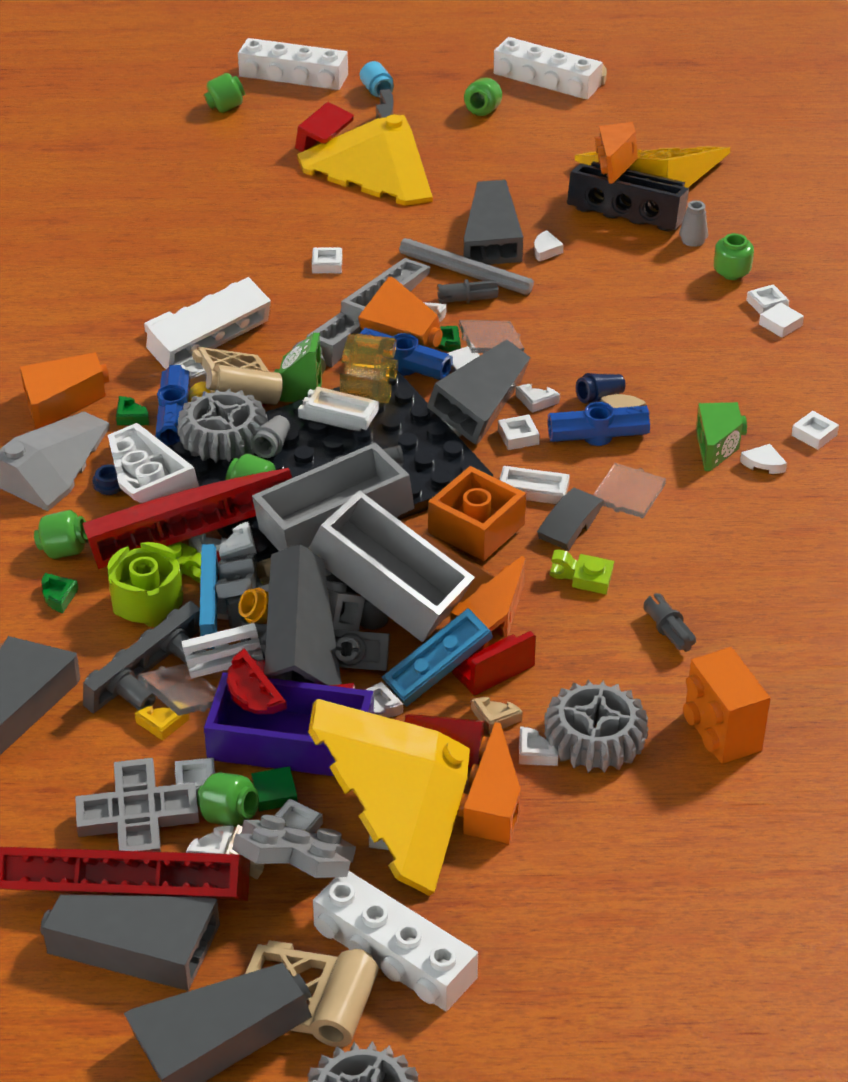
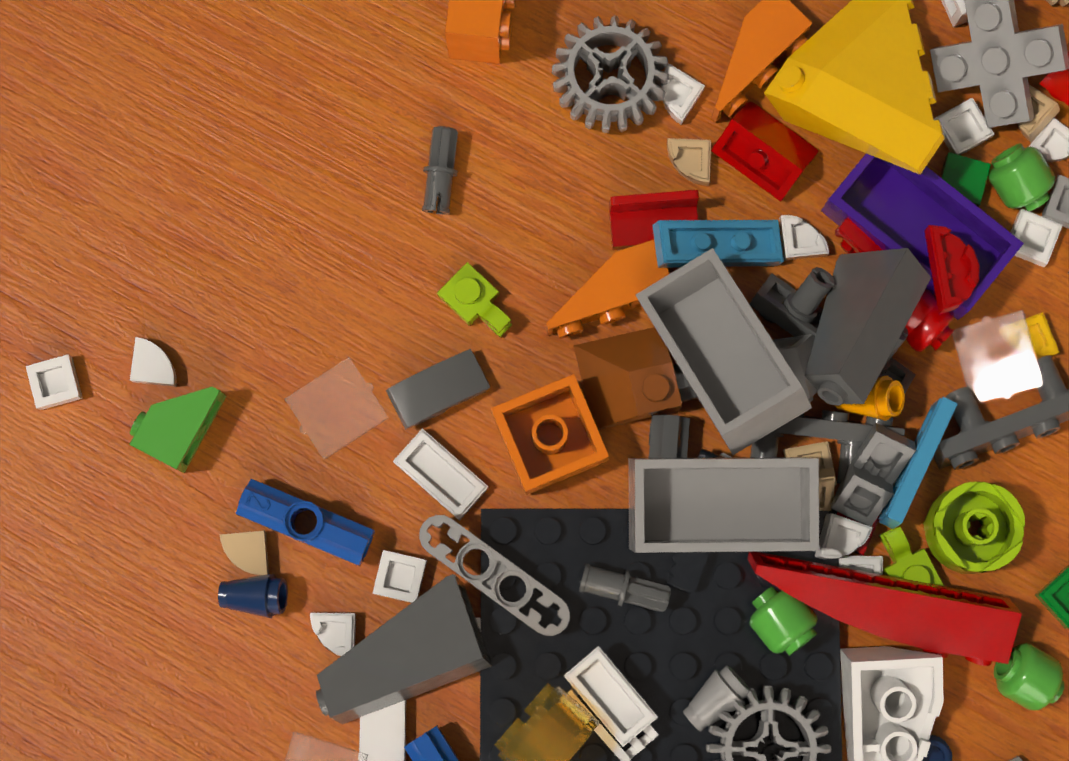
camera: 150 degrees left, 40 degrees up
(220, 657) = (942, 369): white tile -> none
(504, 442) = (498, 570): none -> light grey beam

